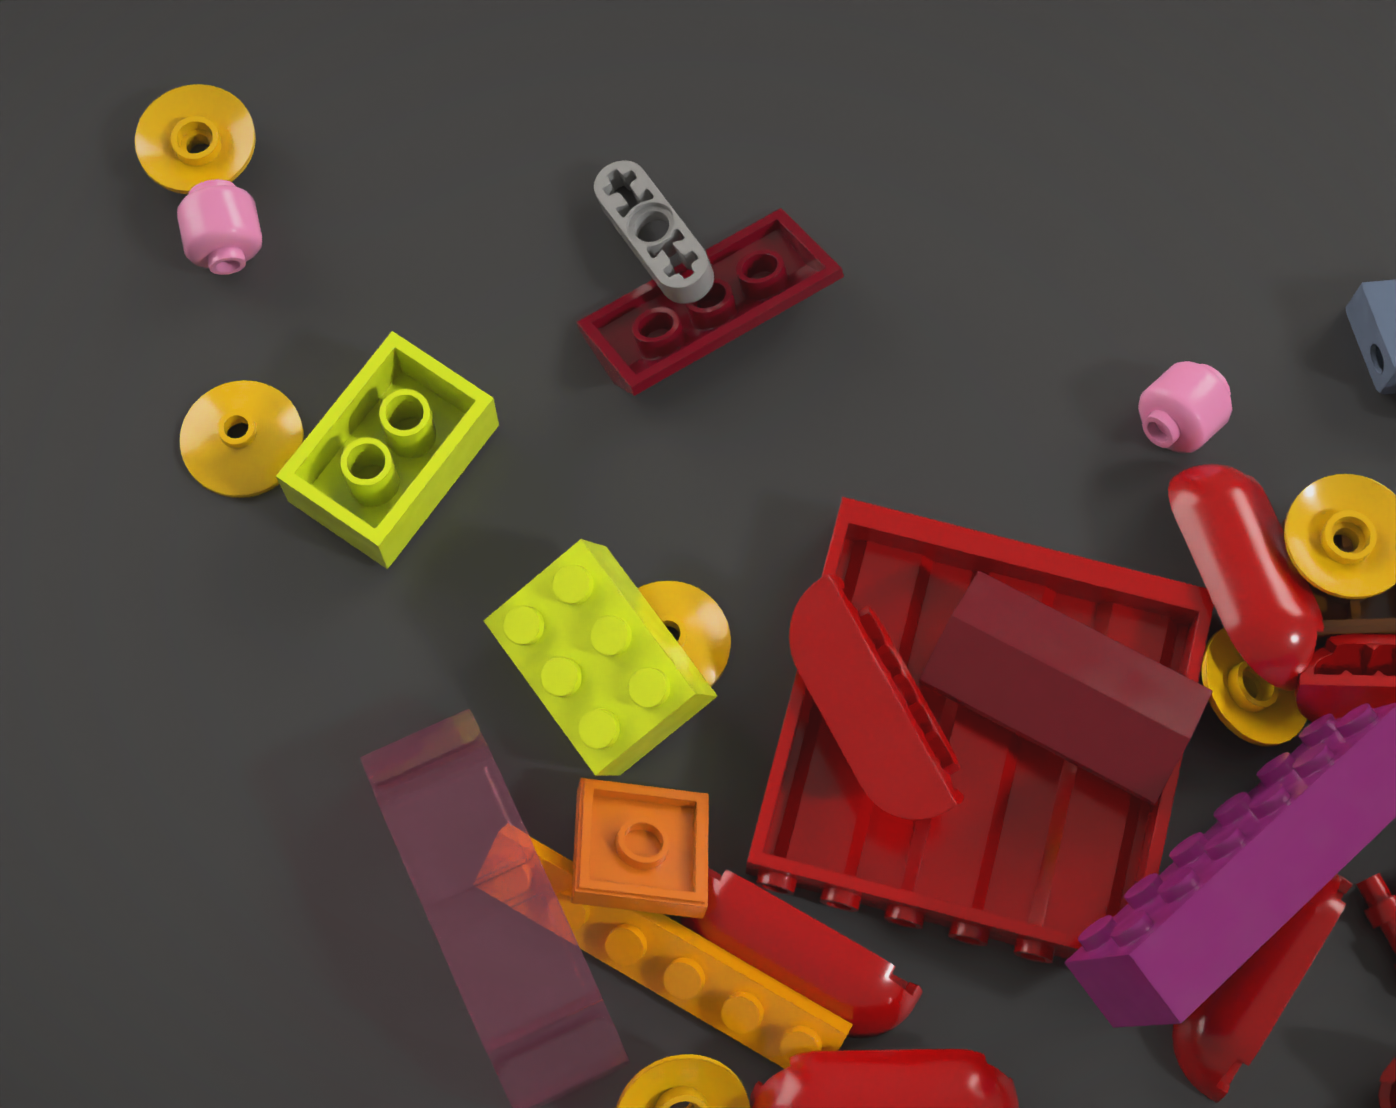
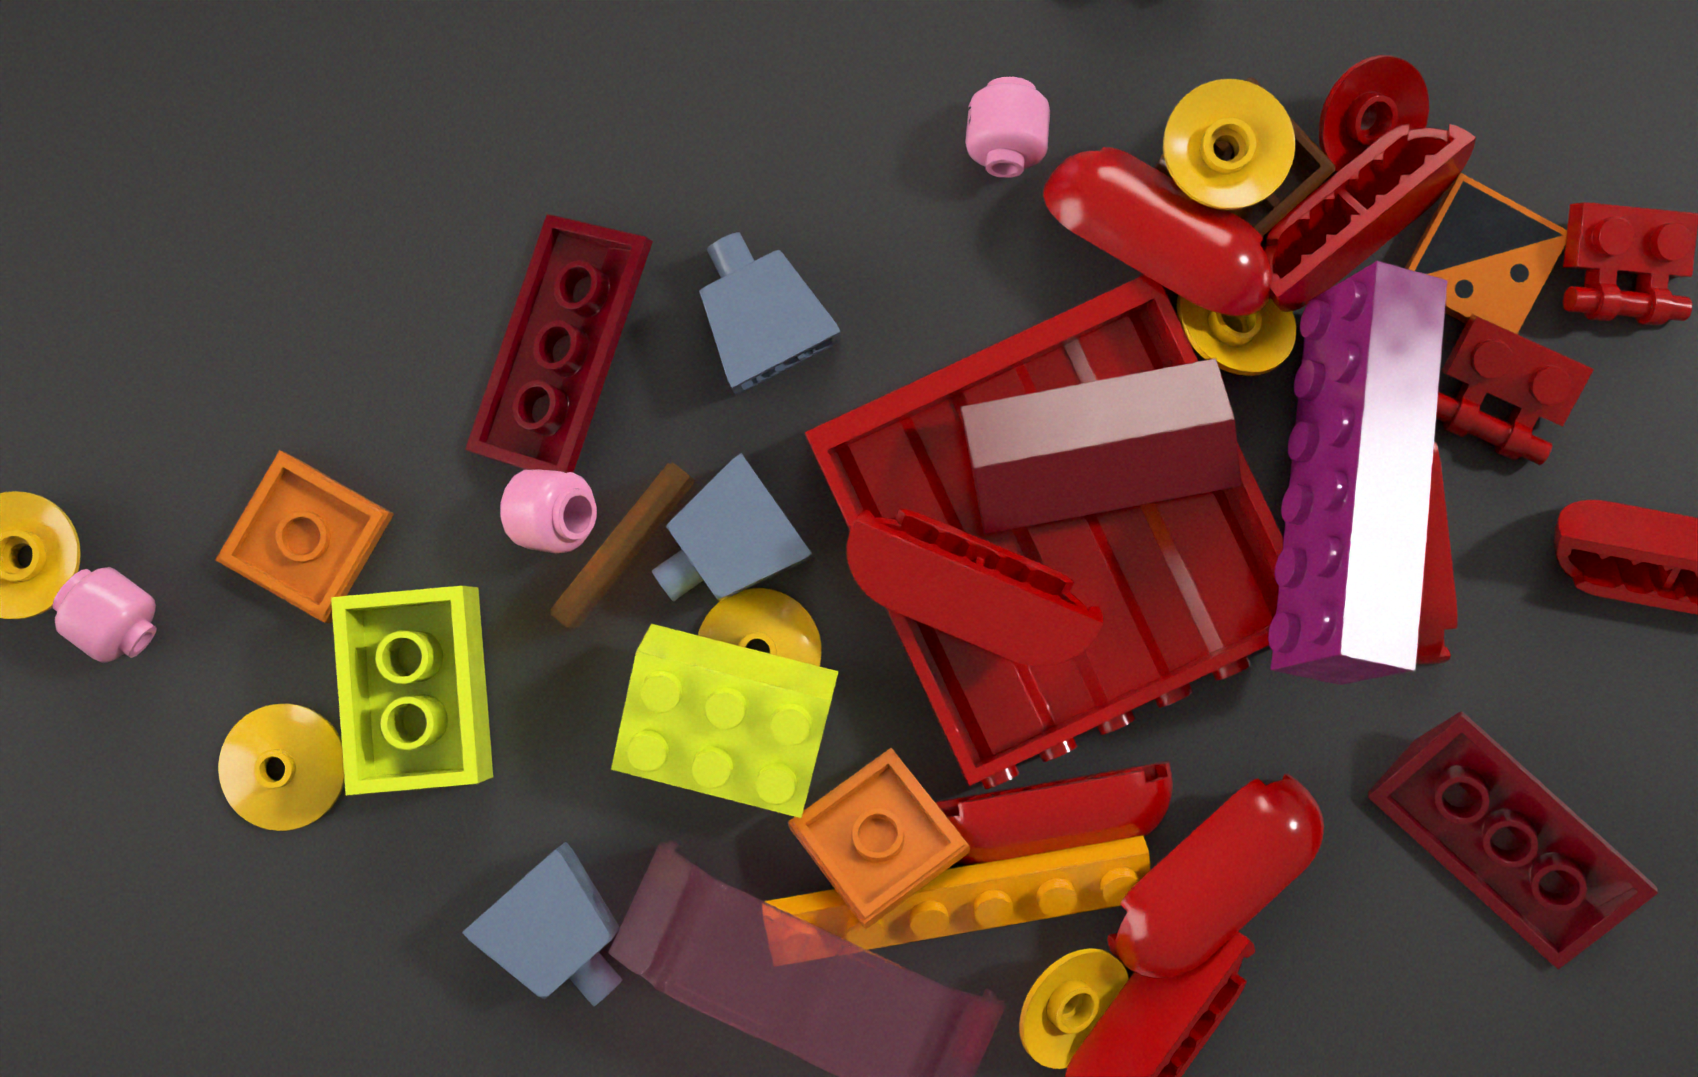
camera: 40 degrees left, 15 degrees up
(331, 710) = (551, 930): none -> sand blue torso
(407, 286) = (304, 536): none -> orange tile
(600, 405) = (548, 510): none -> bright pink head
(634, 476) = (622, 546): none -> clear orange tile
(655, 254) = (438, 331): light grey beam -> none
(720, 535) = (730, 537): none -> sand blue torso
(880, 397) = (762, 314): none -> sand blue torso

